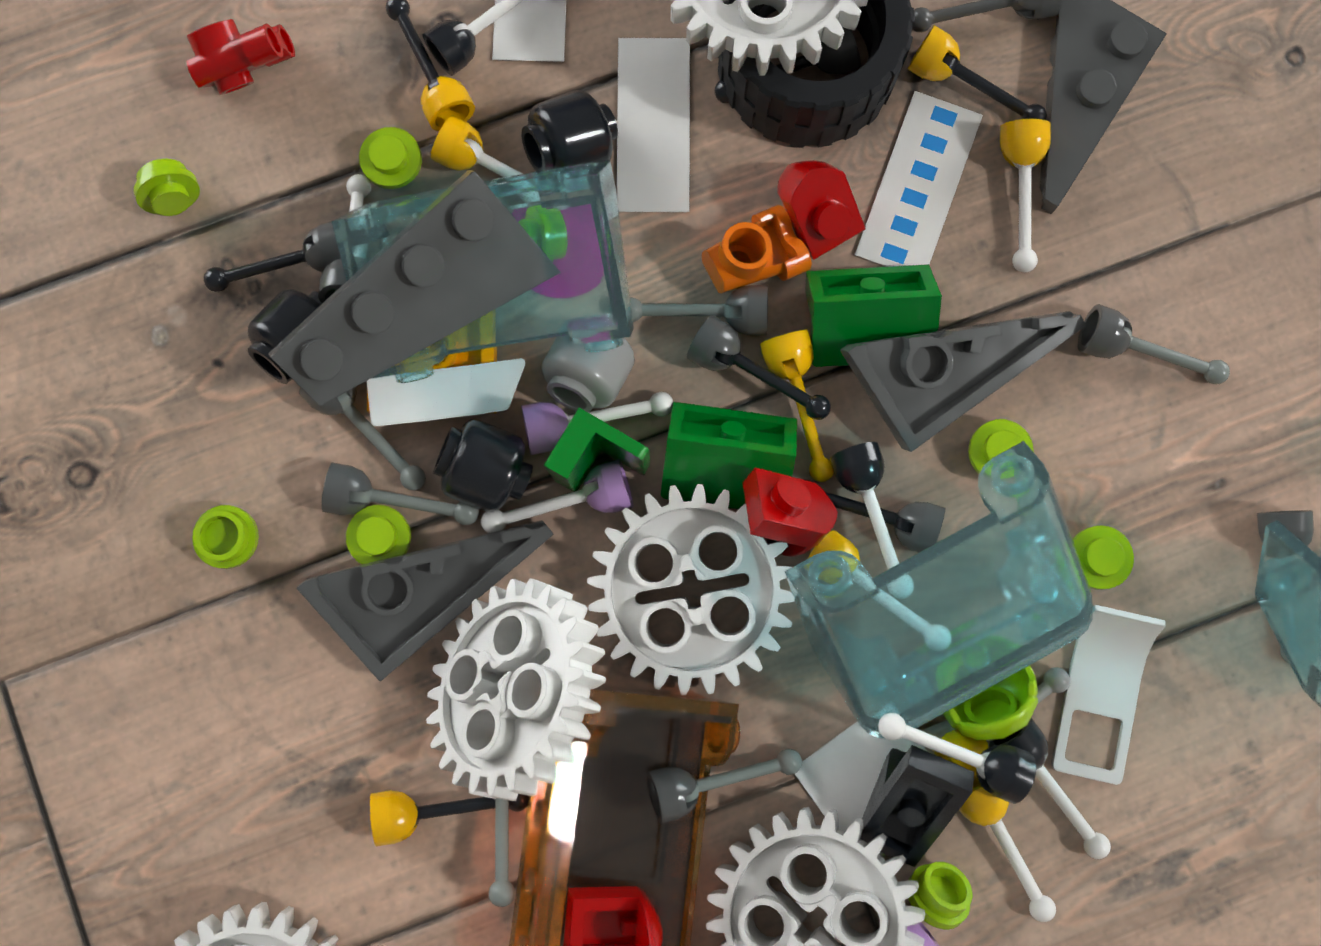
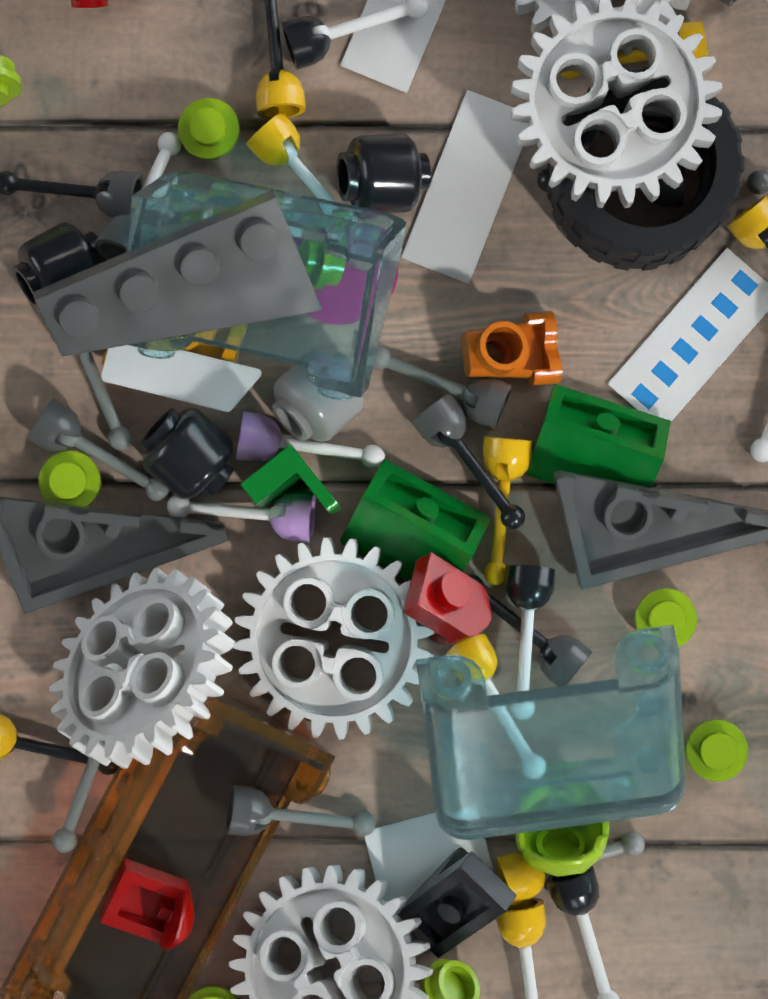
camera: 20 degrees right, 5 degrees up
(819, 205) = (588, 327): red plate -> none
(1001, 769) = (543, 902): hinge -> none
(1106, 682) = (676, 863): white piece -> none

